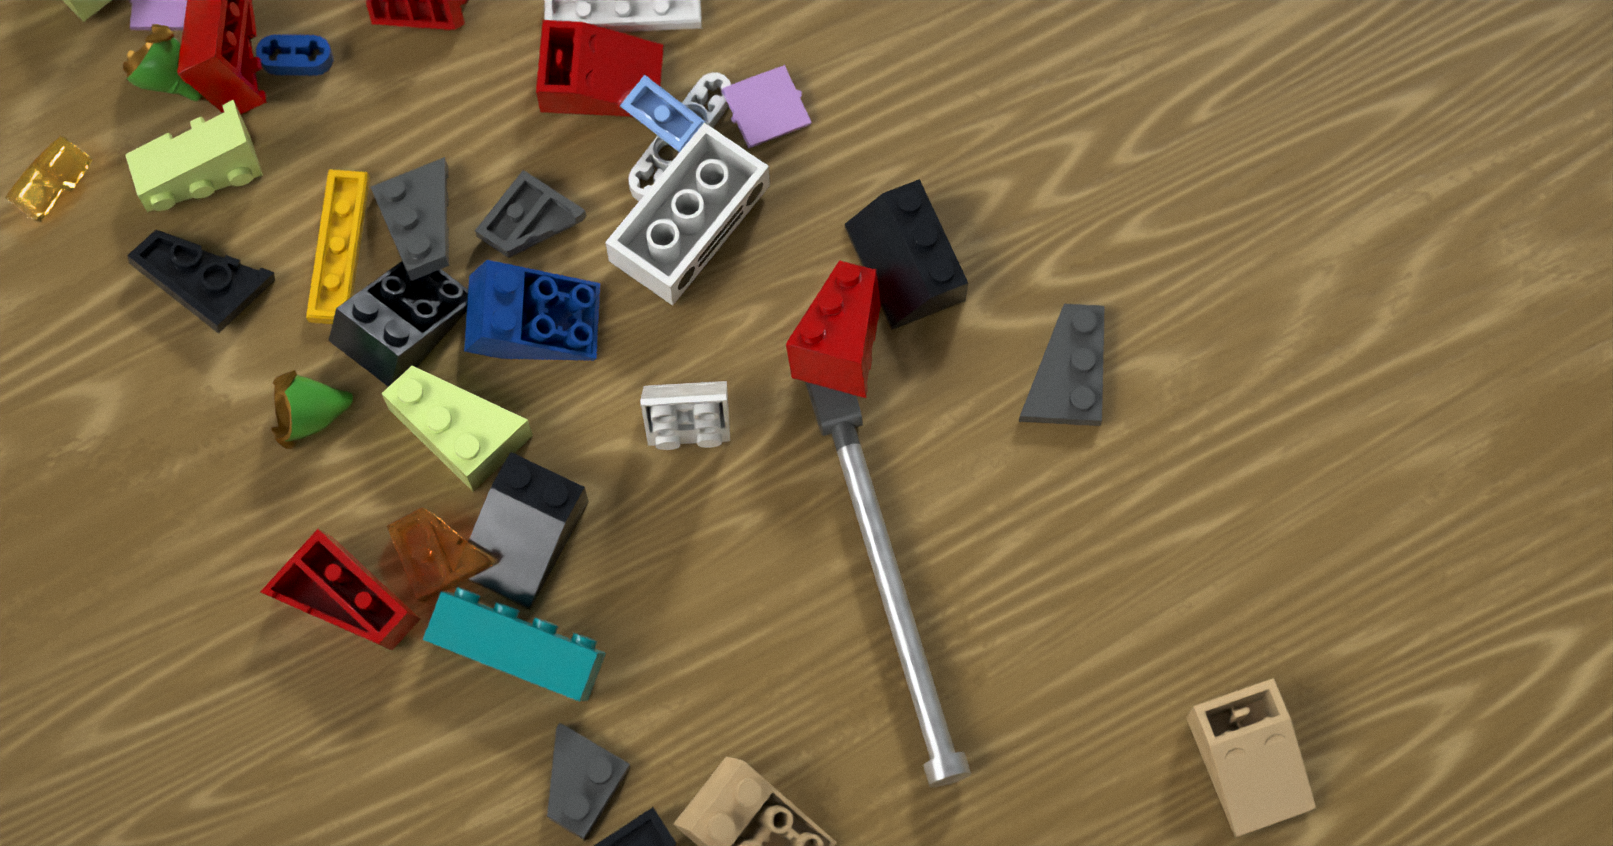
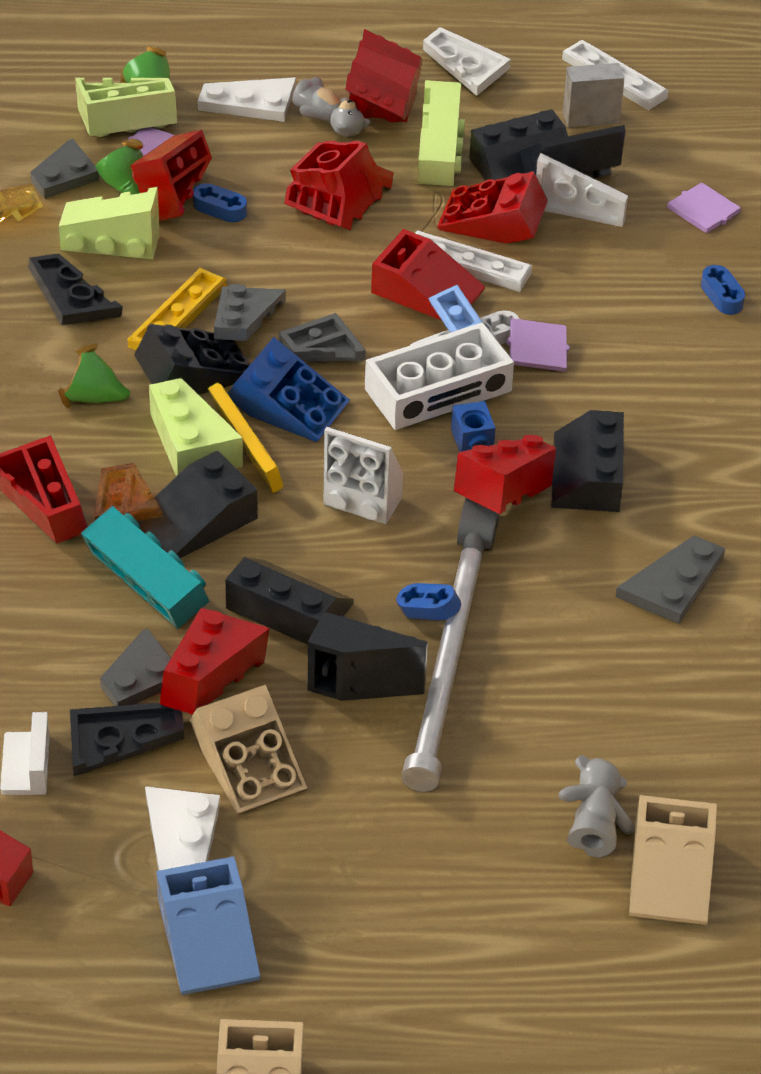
camera: 25 degrees right, 25 degrees down
(82, 88) = (64, 170): none -> dark grey wing
(521, 402) = (251, 444): none -> yellow tile
(657, 742) = (210, 658): none -> red wedge
(686, 605) = (281, 598): none -> black slope
(756, 253) = (472, 425): none -> blue brick
(810, 667) = (364, 661): none -> black slope
(840, 549) = (428, 601): none -> blue beam
(1144, 724) = (599, 810): none -> light grey piece

